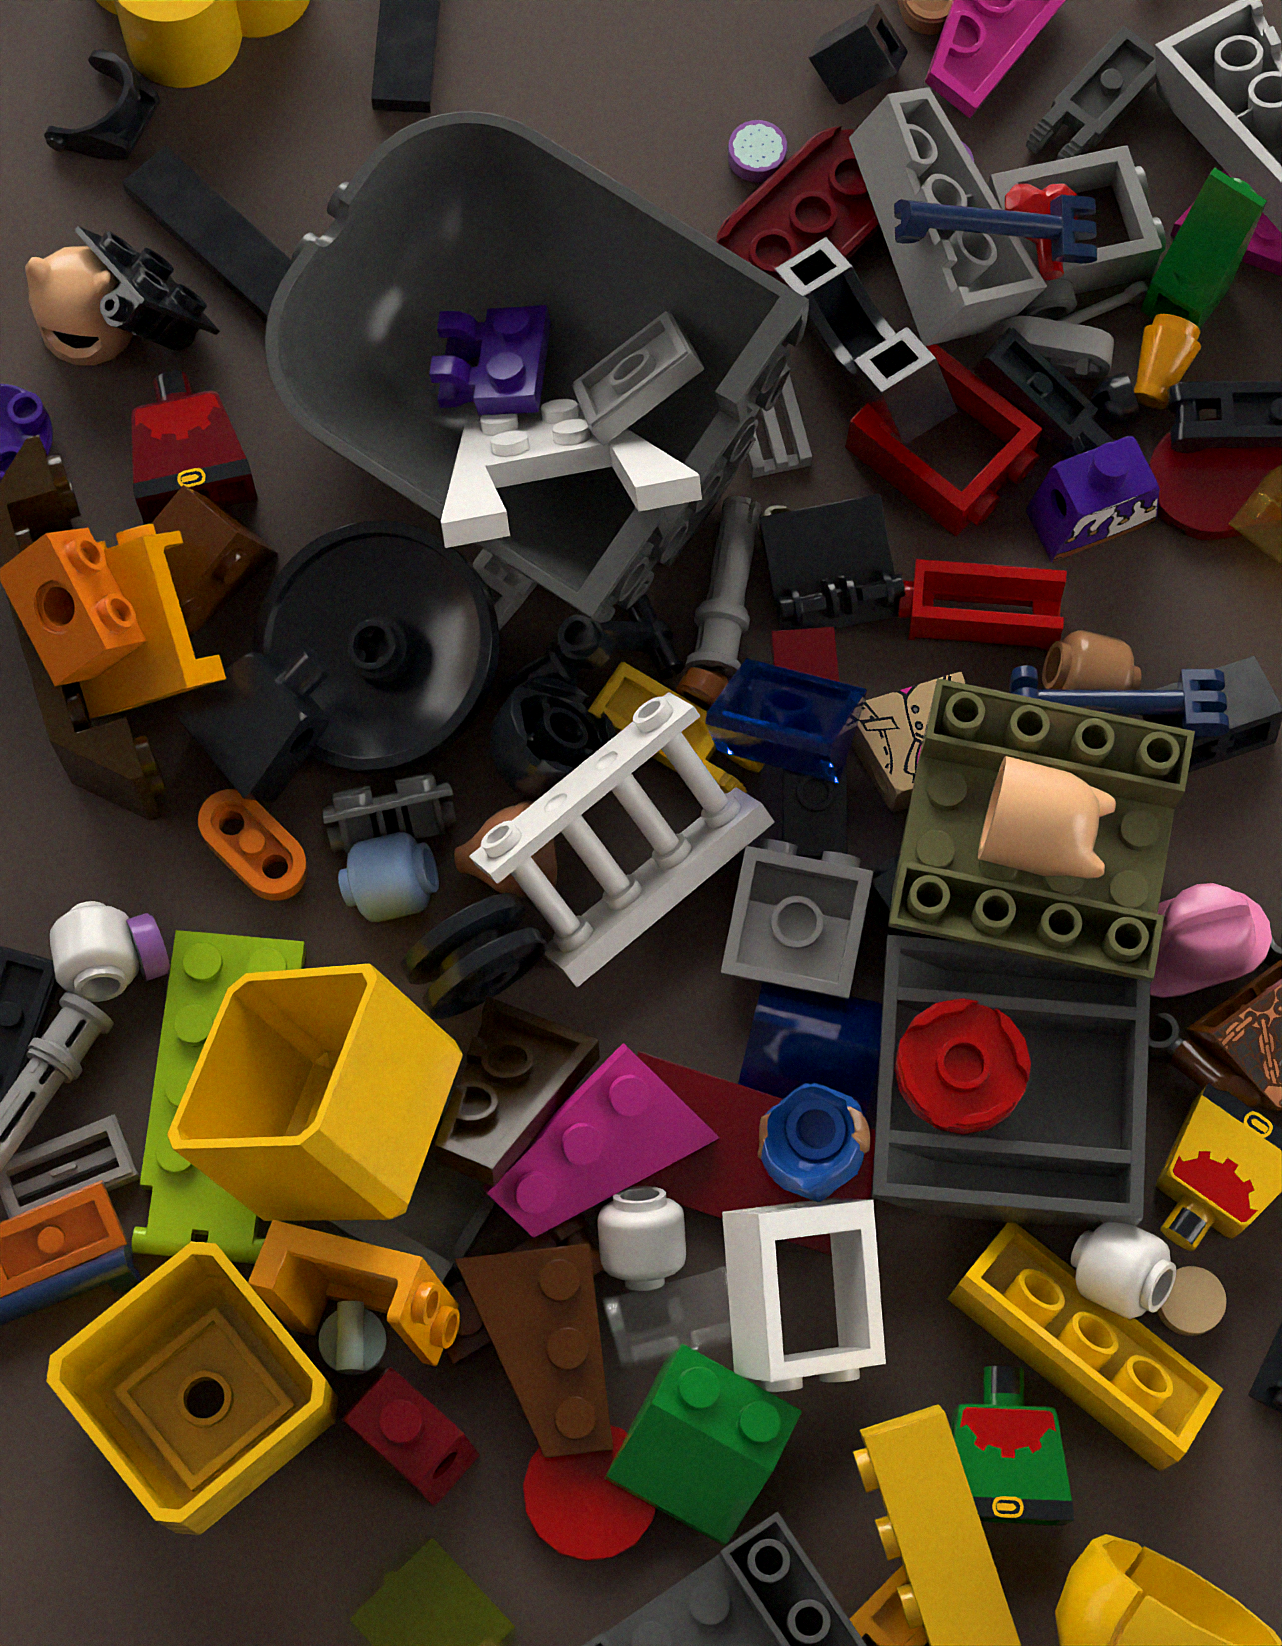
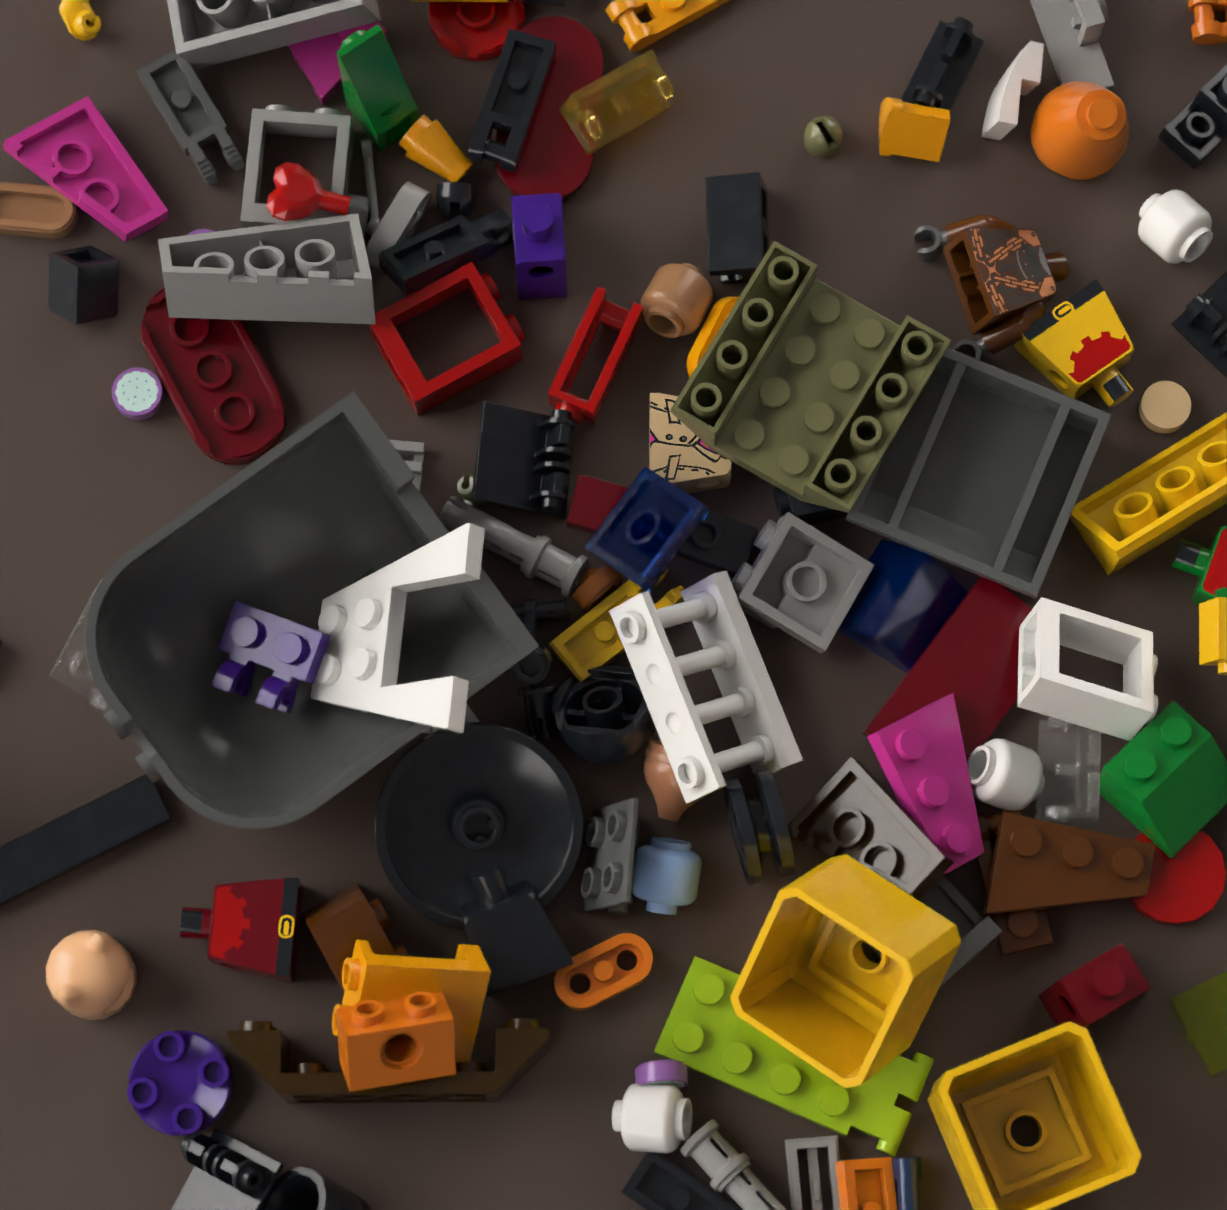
camera: 70 degrees left, 5 degrees up
(147, 296) = (118, 909): black hinge -> none
(308, 1267) = (956, 1021): light orange panel -> none
(352, 1339) = (1013, 1011): light aqua plate -> none
(636, 377) = (340, 547): light grey tile -> none
(813, 1141) = (982, 624): blue hair -> none
(886, 367) = (387, 360): black arch -> none
(962, 1066) = (964, 499): red tile -> none
(1043, 821) = (812, 370): light nougat piece -> none
(1058, 226) = (319, 186): dark blue hinge -> none
(1123, 1269) = (1134, 444): white head -> none
(1196, 700) = (730, 238): dark blue hinge -> none
(1208, 940) = (909, 284): bright pink piece -> none

